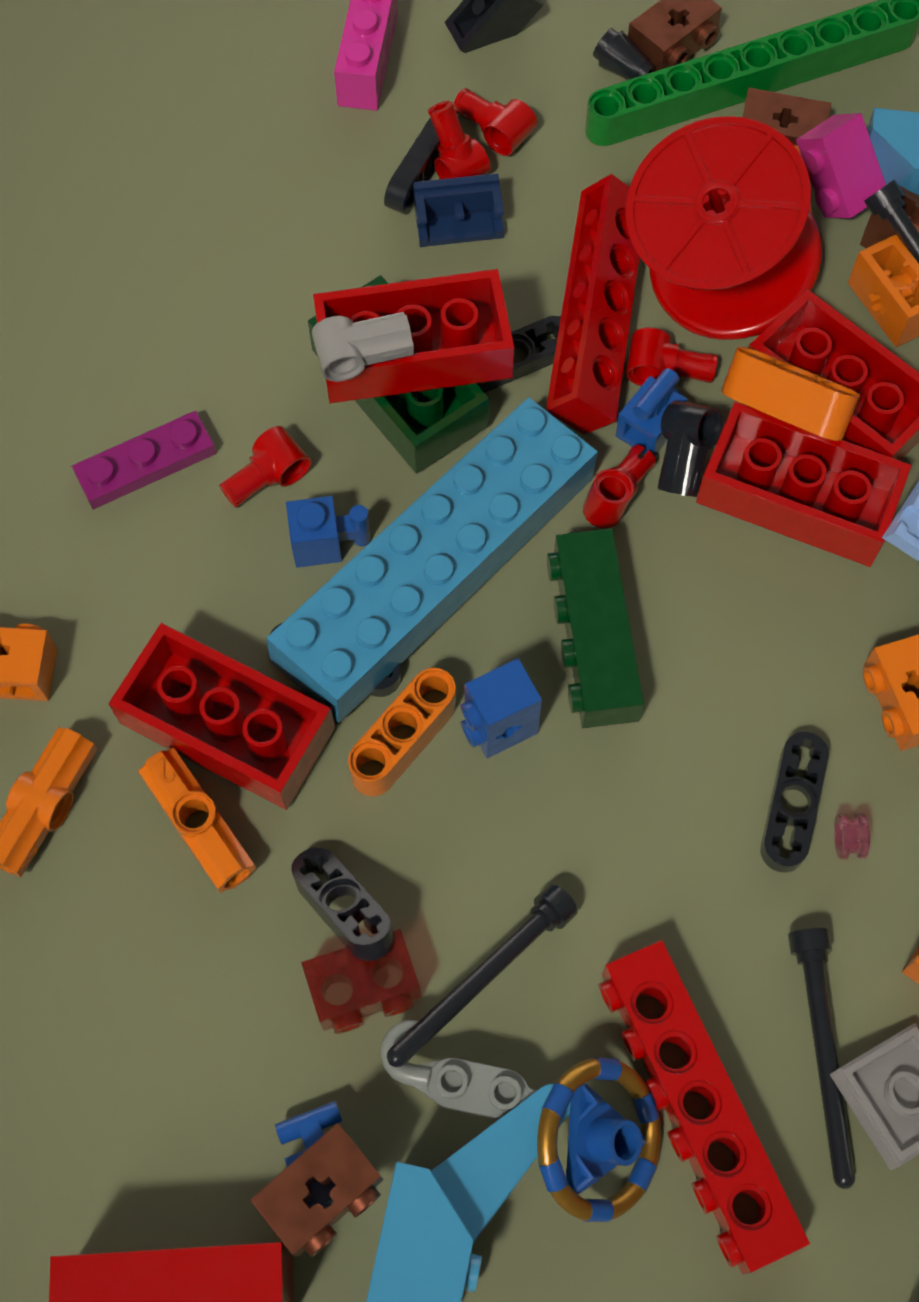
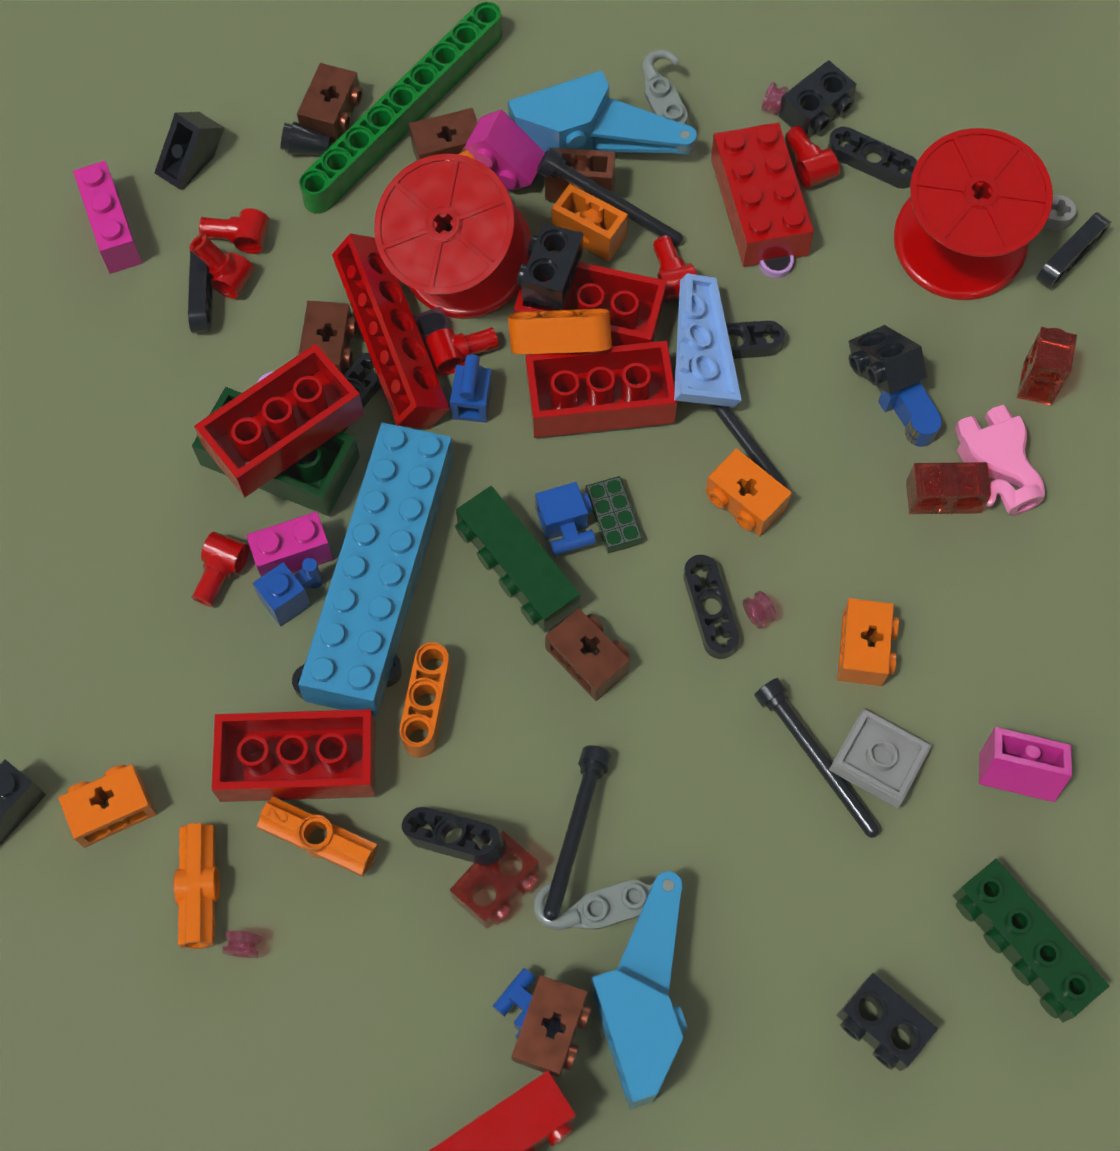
camera: 30 degrees left, 0 degrees up
(48, 893) = (241, 944): none -> clear pink bush
(144, 459) = (123, 607): magenta plate -> none
(349, 346) = (246, 451): light grey piece -> none
(354, 480) = (290, 543): none -> dark pink brick
(458, 210) = (248, 310): dark blue hinge -> none
(501, 709) = (486, 648): blue brick -> none
(530, 275) = (331, 328): none -> copper brick
(598, 1140) = (708, 892): blue piece -> none
(612, 805) = (592, 672): none -> copper brick
(615, 488) = (475, 455): red pin -> none
(650, 315) = (430, 321): none -> black tile
(679, 605) = (563, 514): none -> blue brick
(689, 434) = (507, 393): black piece -> none
(739, 636) = (614, 514): none -> dark green tile
(777, 1226) = (782, 835): red brick -> none
(825, 319) = (556, 267): none -> black brick

